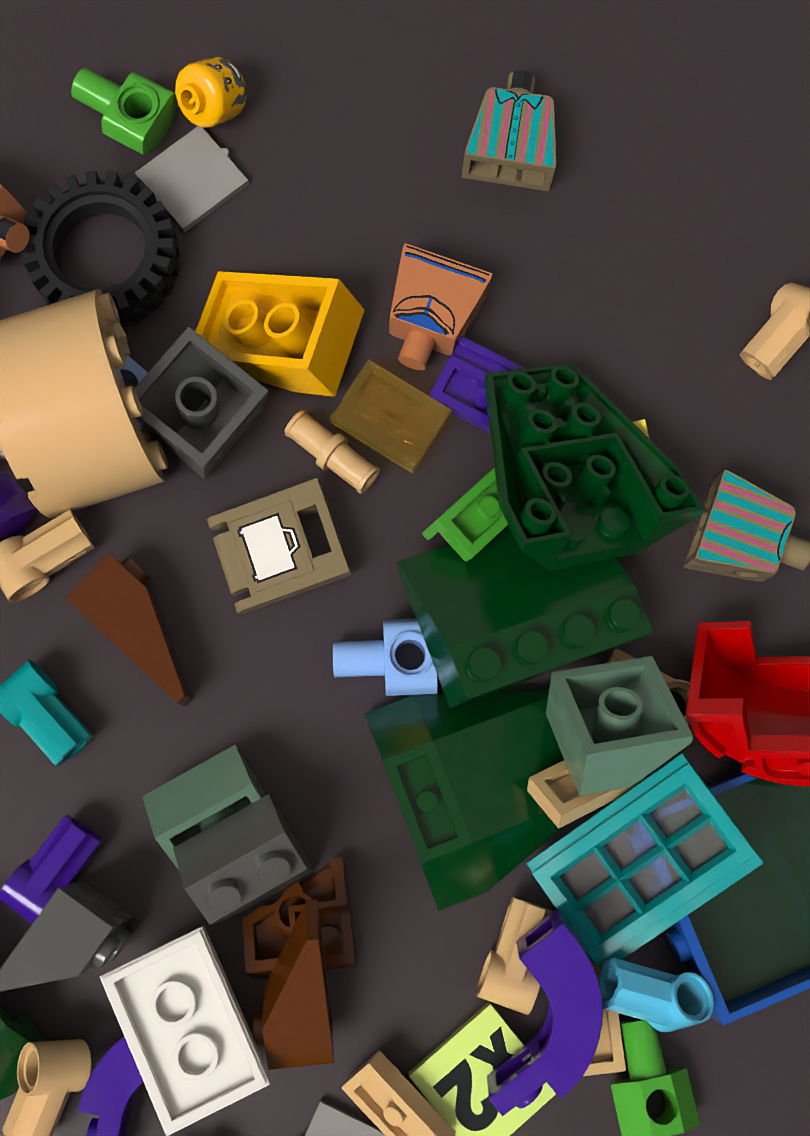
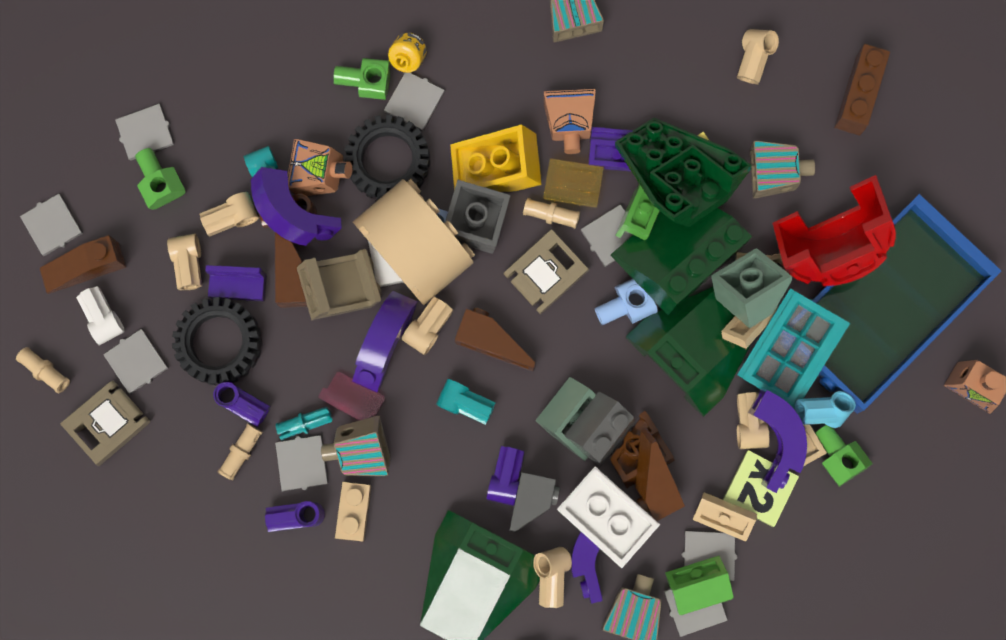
camera: 10 degrees left, 0 degrees up
(401, 521) = (602, 233): none -> light grey piece

